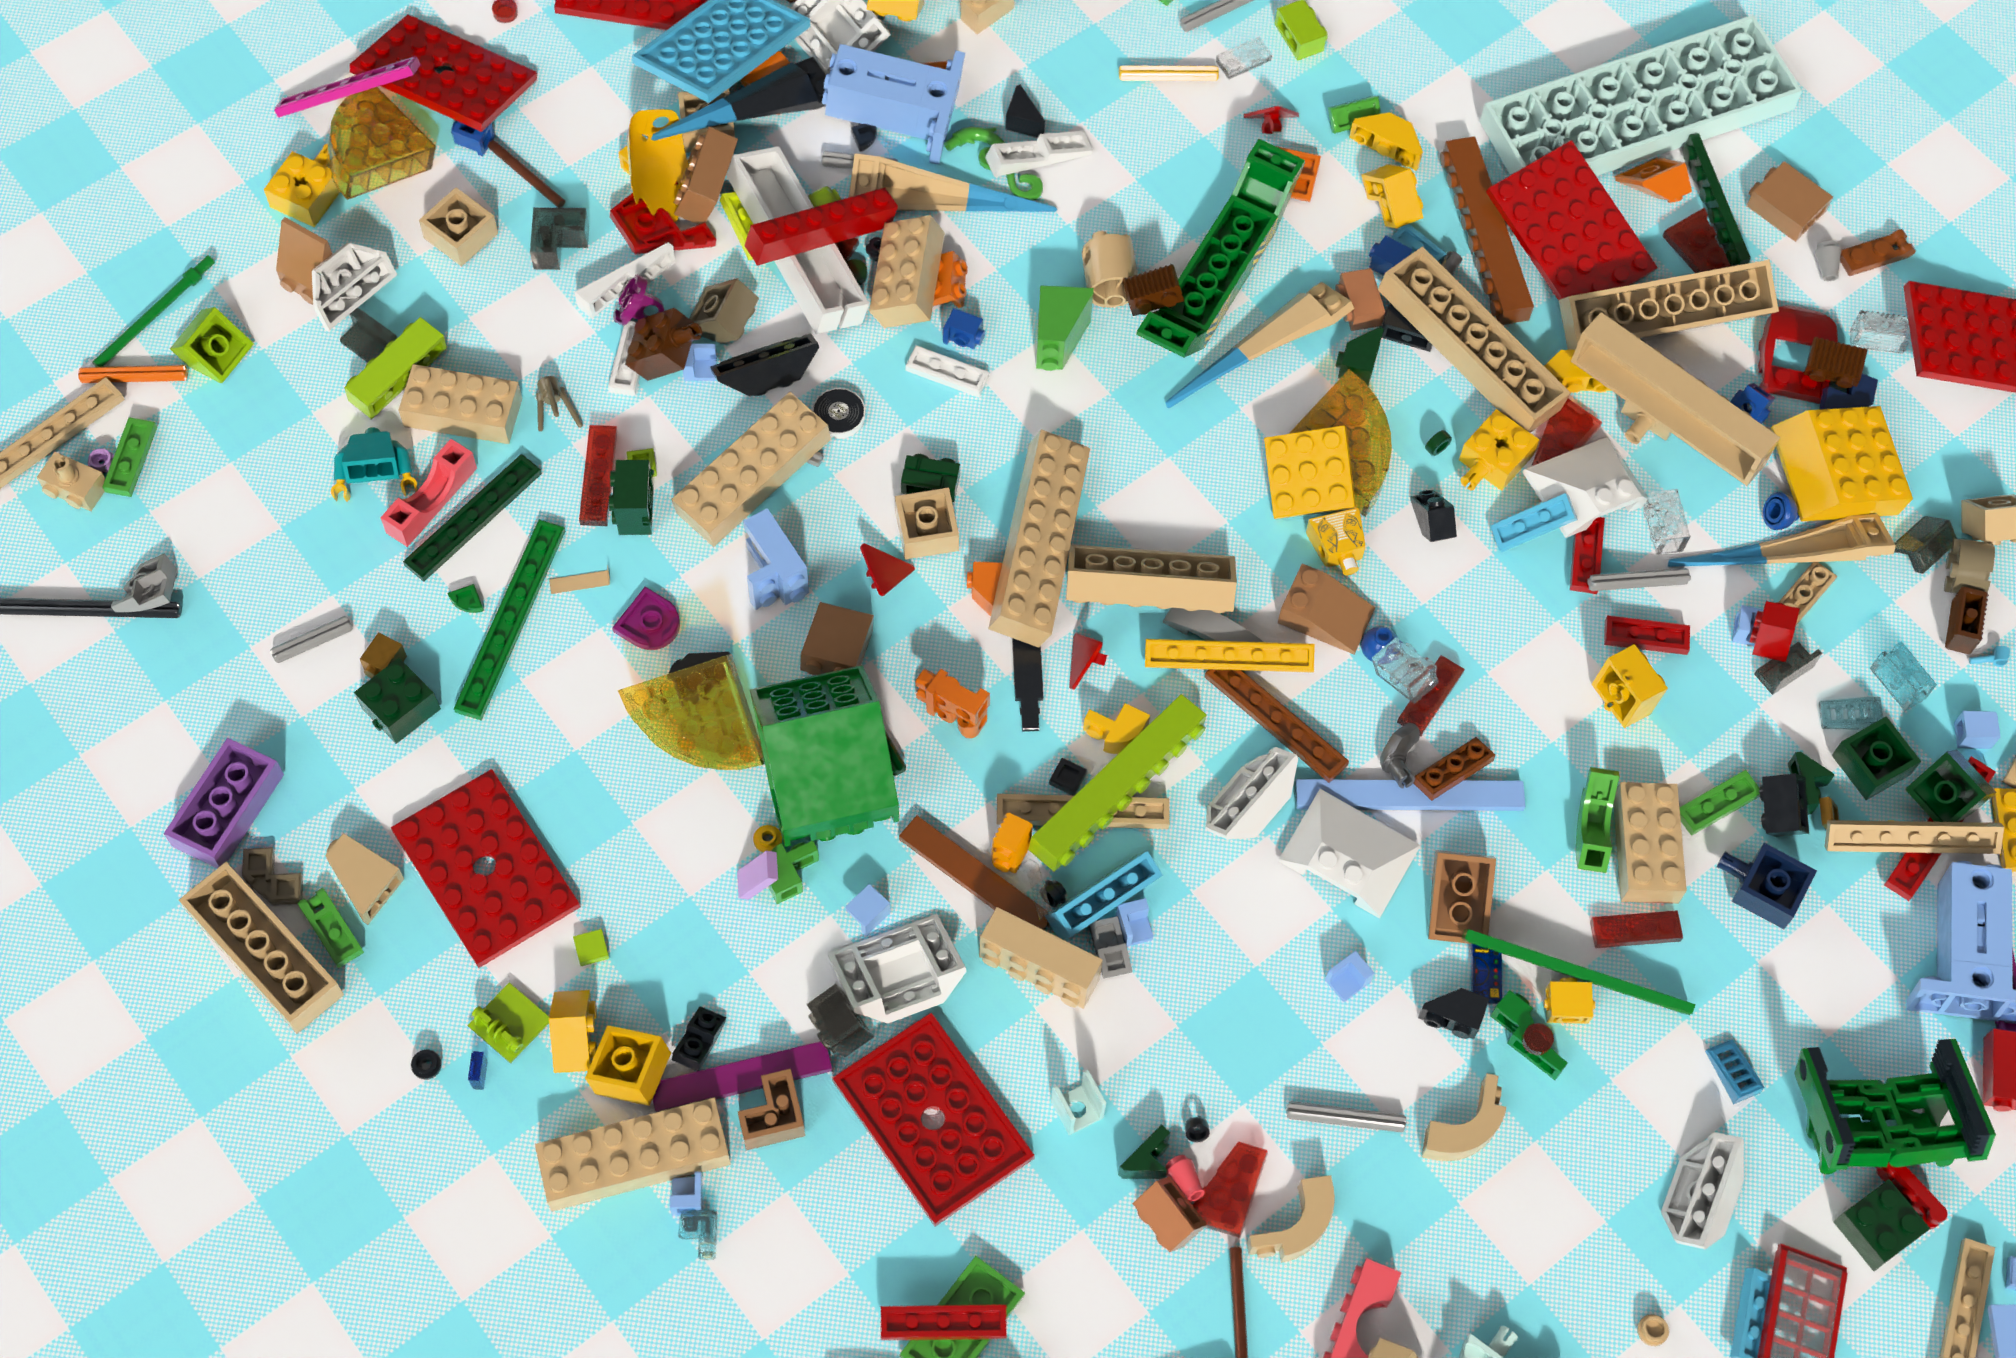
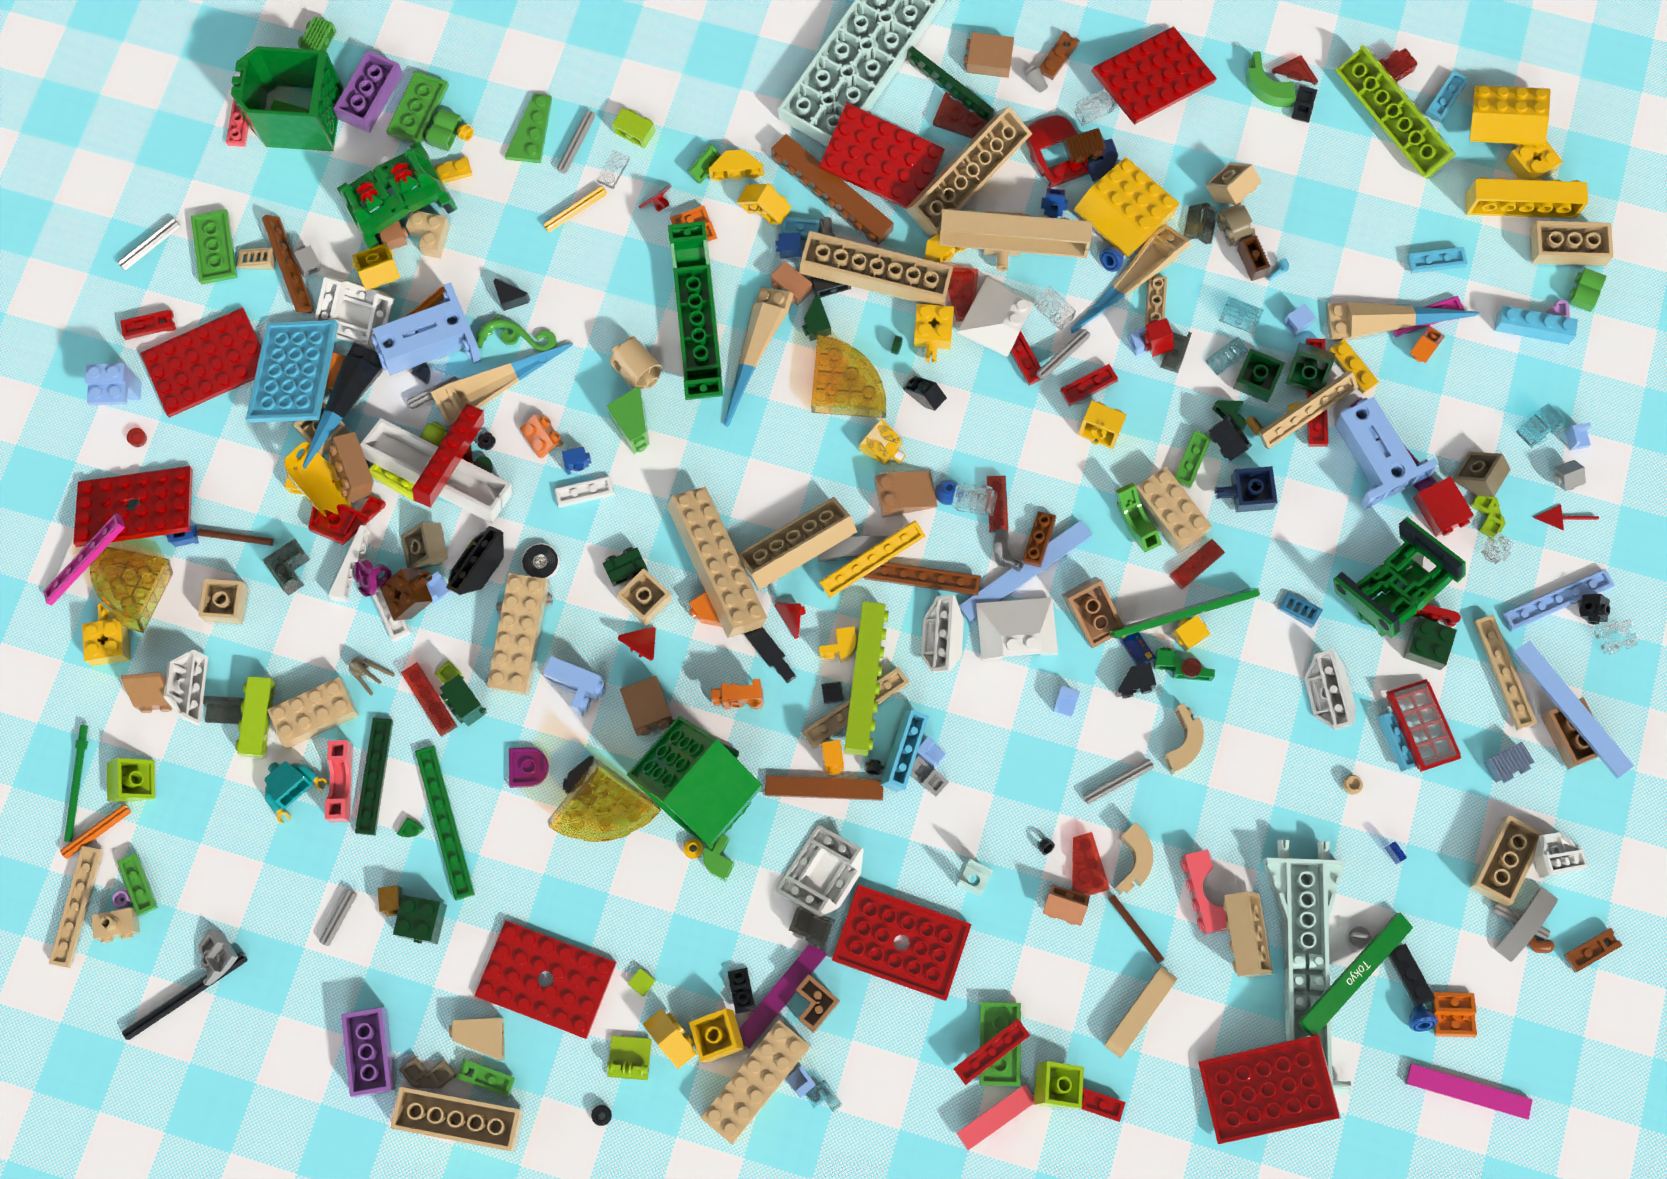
camera: 30 degrees left, 10 degrees up
(477, 1070) = (633, 1098): clear blue tile -> none
(579, 582) = (463, 775): tan piece -> none
(757, 875) = (705, 875): lavender tile -> none
(868, 909) = (780, 850): light blue panel -> none
(907, 271) = (517, 446): tan brick -> none
(1037, 886) = (864, 771): clear piece -> none
(1040, 958) = (896, 812): tan brick -> none
(1047, 150) = (533, 318): white slope -> none
(1142, 1163) = (1031, 886): dark green slope -> none
(1153, 290) = (673, 363): reddish brown brick -> none
(1185, 1176) = (1058, 877): coral cone -> none
(1310, 472) = (840, 415): yellow plate -> none
(1533, 522) = (984, 360): medium azure plate -> none
(1659, 179) = (906, 89): orange slope -> none

